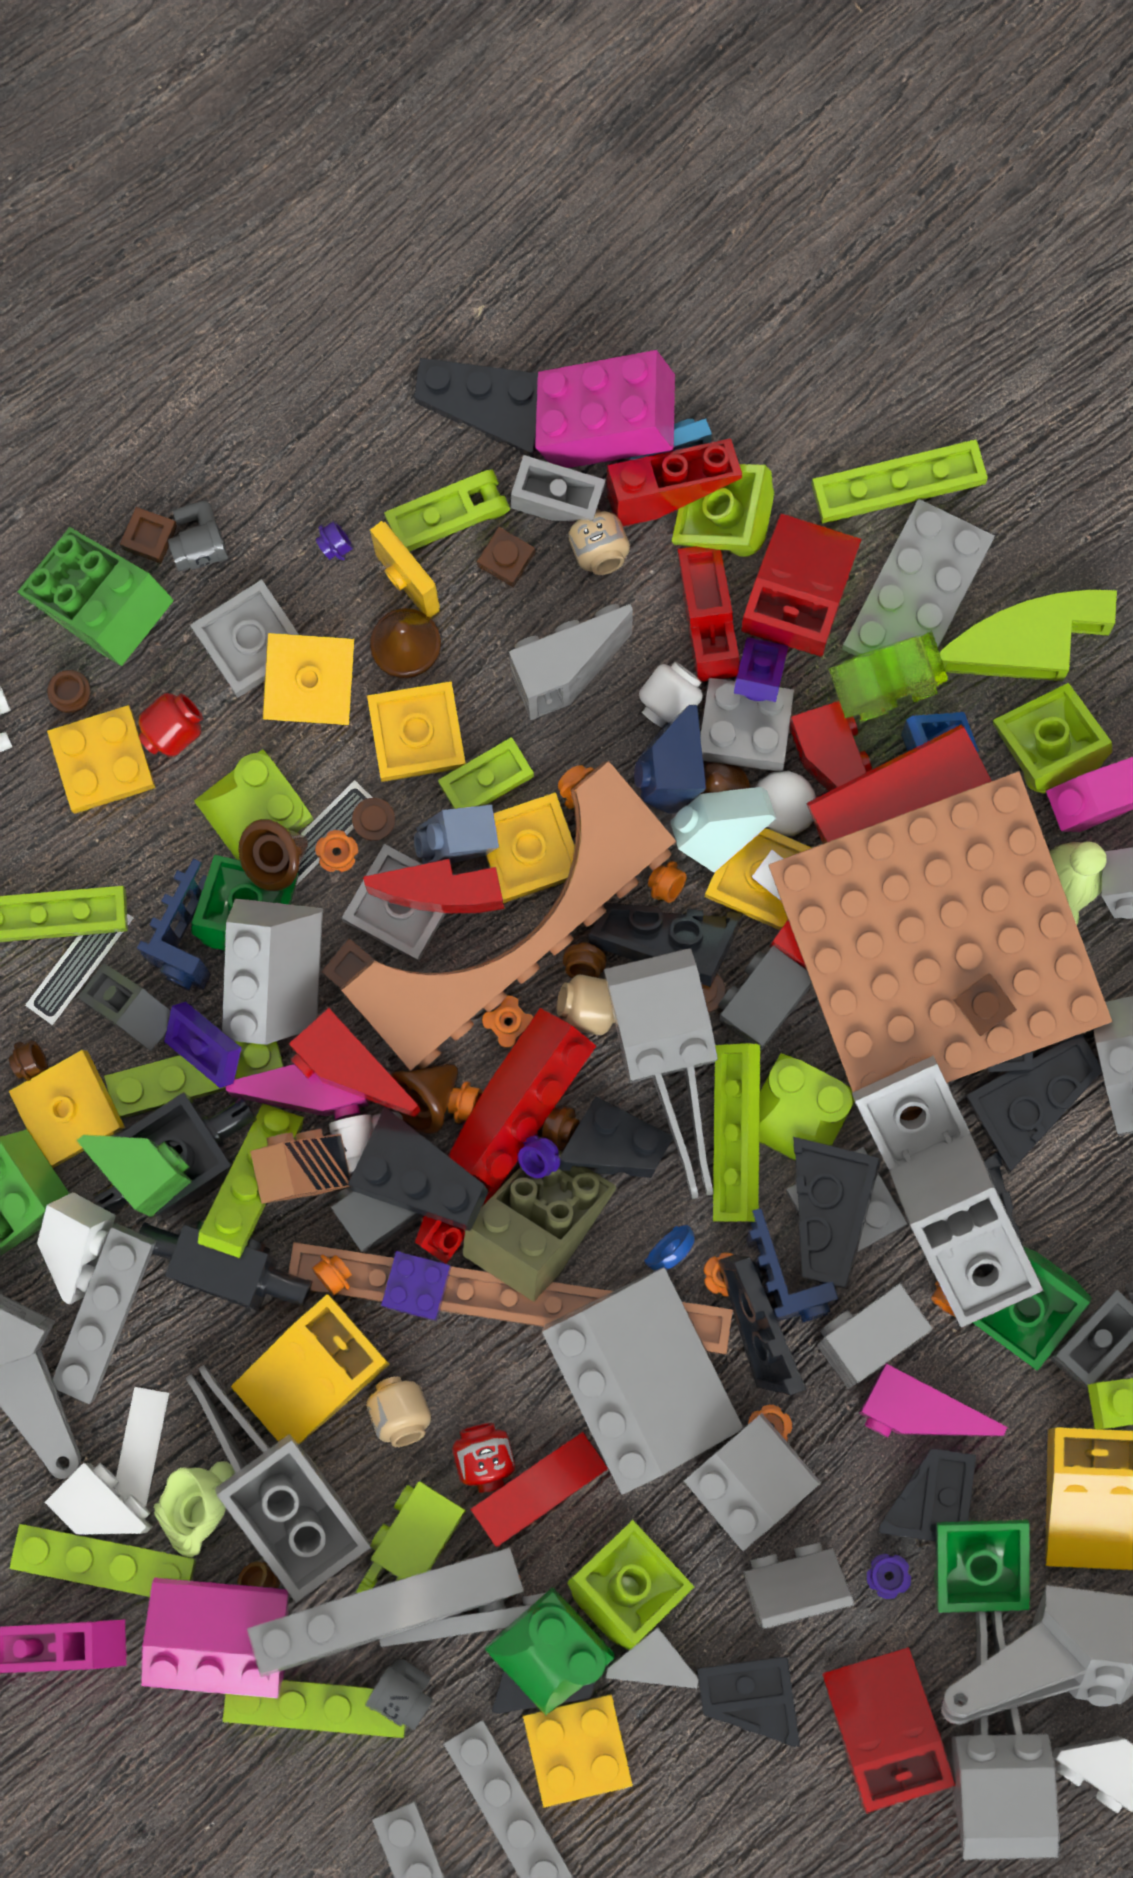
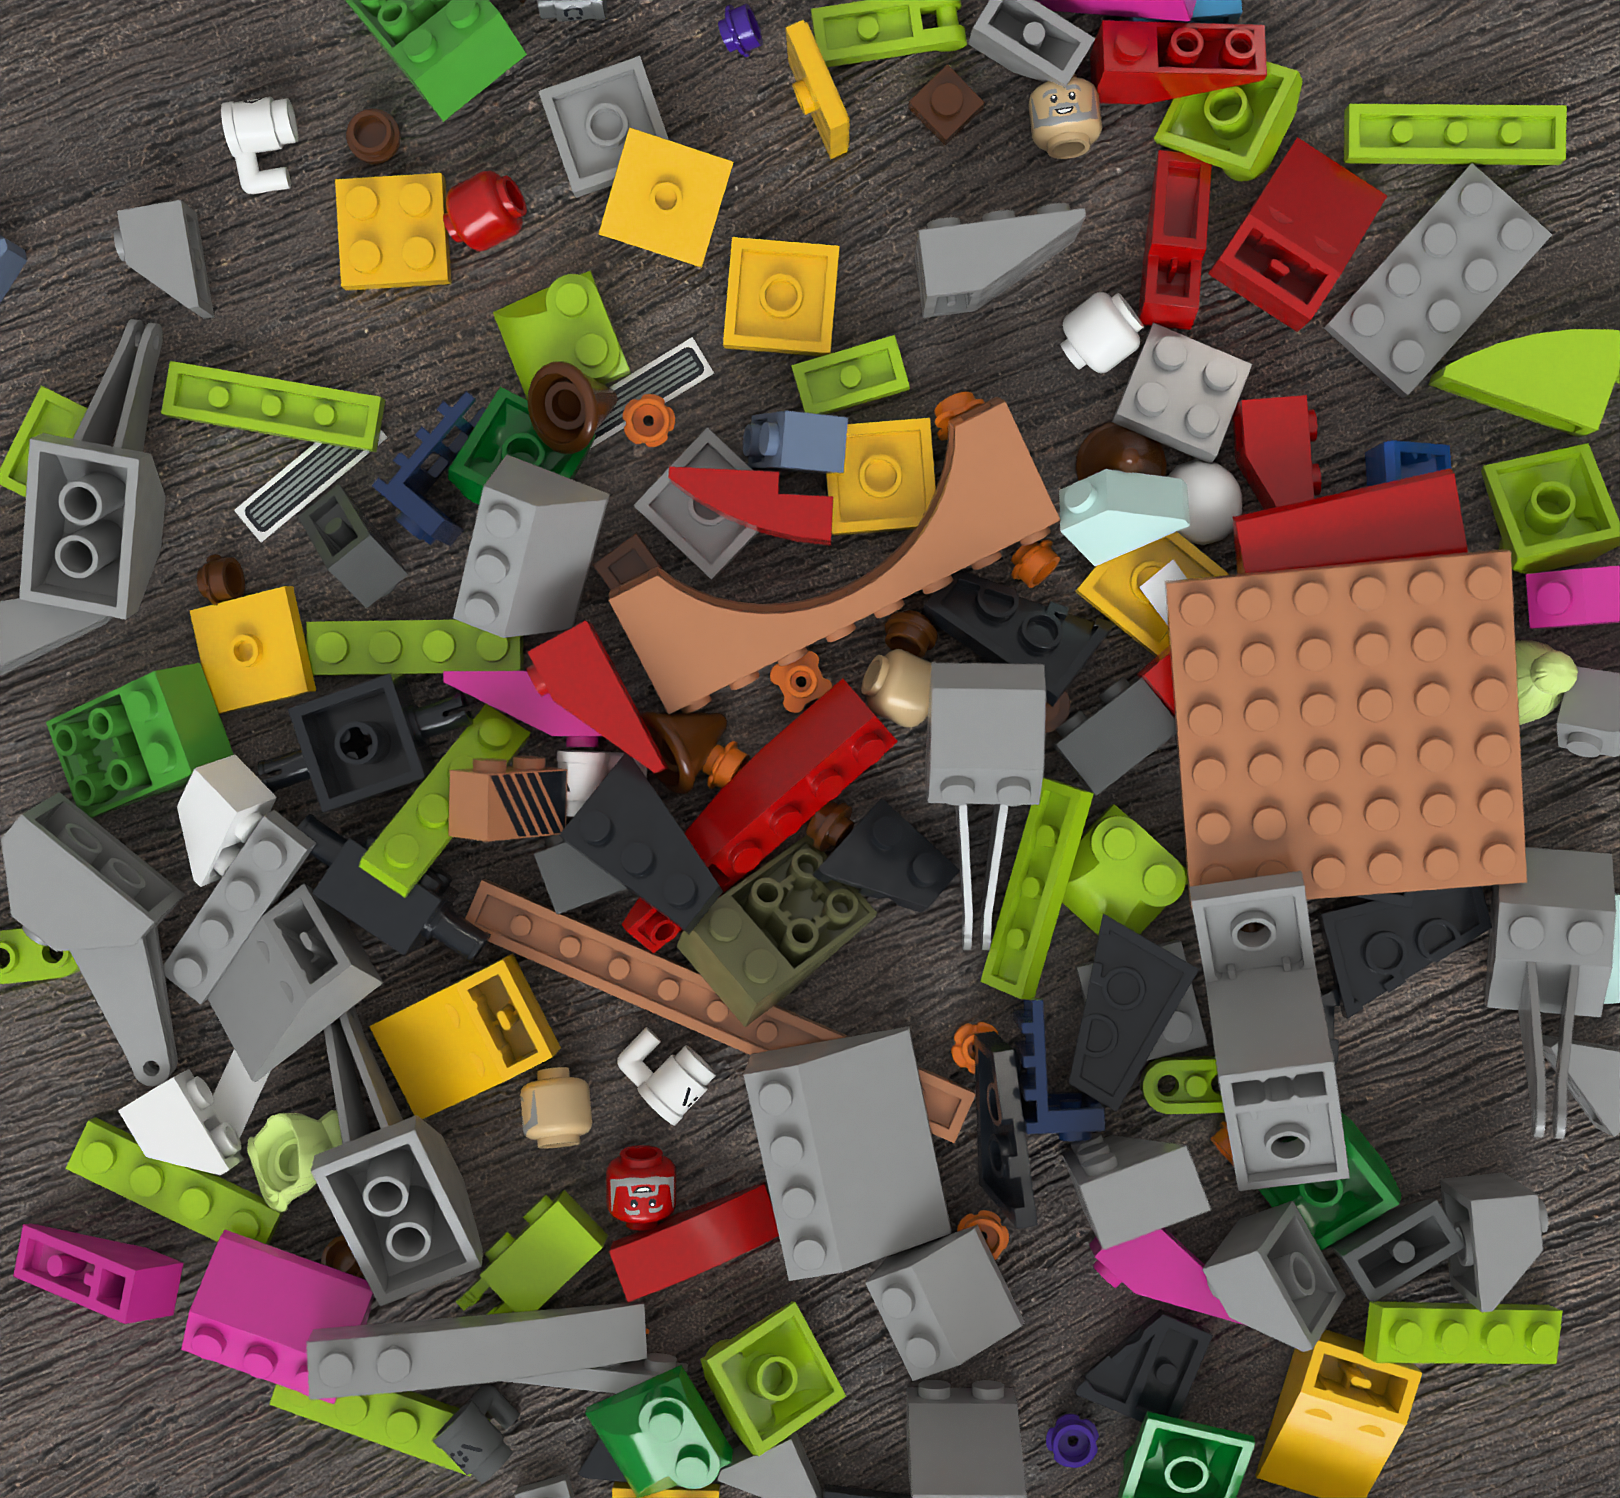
camera: 10 degrees right, 10 degrees up
(139, 1169) = (304, 761): bright green slope -> none
(158, 1362) = (291, 981): none -> light grey slope
(202, 1044) = (428, 619): dark purple plate -> none
(332, 1273) = (516, 933): orange plate -> none
(373, 819) = (702, 392): reddish brown plate -> none
(405, 643) = (795, 182): reddish brown hat -> none
(416, 1286) = (611, 973): dark purple piece -> none
(488, 1368) = (674, 1084): none -> white piece
(539, 1157) = (795, 859): dark purple plate -> none
(671, 1248) = (923, 993): blue piece -> none
(672, 764) = (1083, 421): dark blue slope -> none
(761, 670) = (1220, 331): dark purple plate -> none
(876, 678) = (1371, 377): clear neon green brick -> none
(905, 1260) = (1192, 1088): none -> lime plate
(984, 1004) = (1381, 824): reddish brown plate -> none
(1009, 1387) = (1275, 1277): none -> light grey slope

